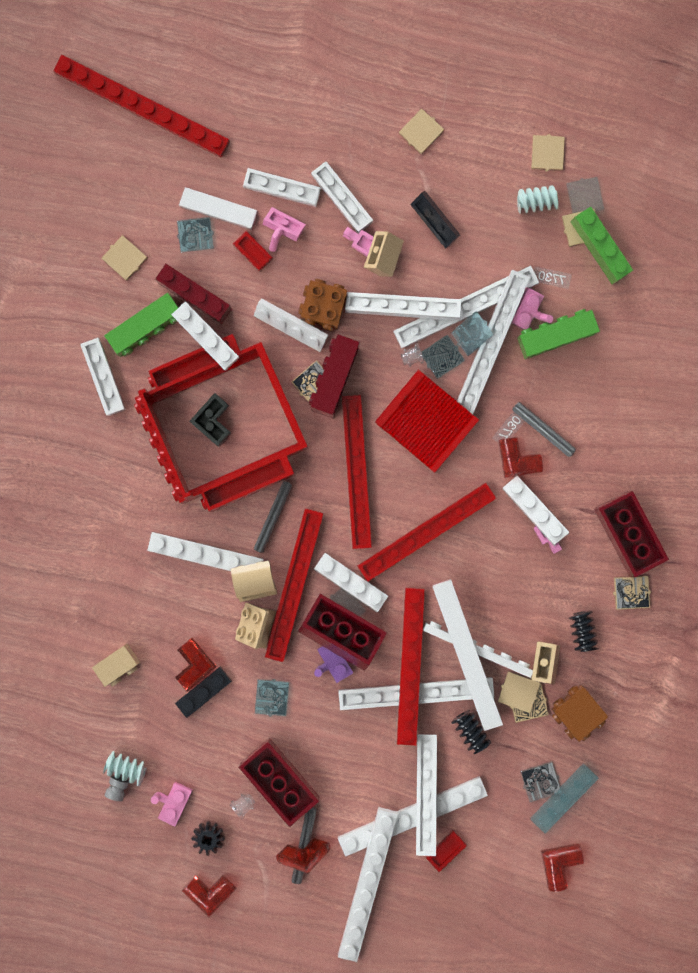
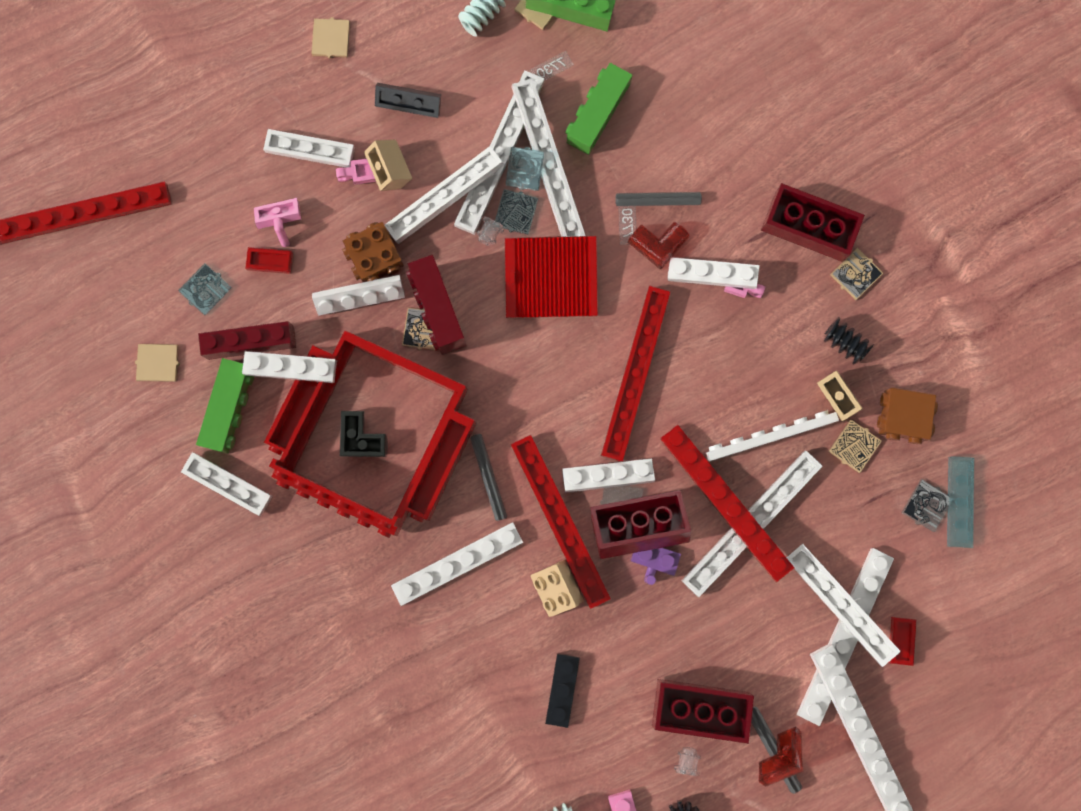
camera: 45 degrees left, 5 degrees down
(116, 665) = (461, 736): tan brick -> none
(199, 664) = (537, 668): clear red brick -> none
(218, 208) = (206, 249): white tile -> none
(253, 581) = (521, 548): tan brick -> none
(271, 697) = (628, 640): clear light blue piece -> none
(282, 187) = (248, 184): white tile -> none
(356, 472) = (529, 374): red plate -> none
(467, 655) = (767, 447): white tile -> none
(471, 731) = (830, 513): black piece -> none
(518, 692) = (839, 443): tan piece -> none
(528, 309) = (555, 109): bright pink plate -> none
(556, 860) = (1003, 563): clear red brick -> none

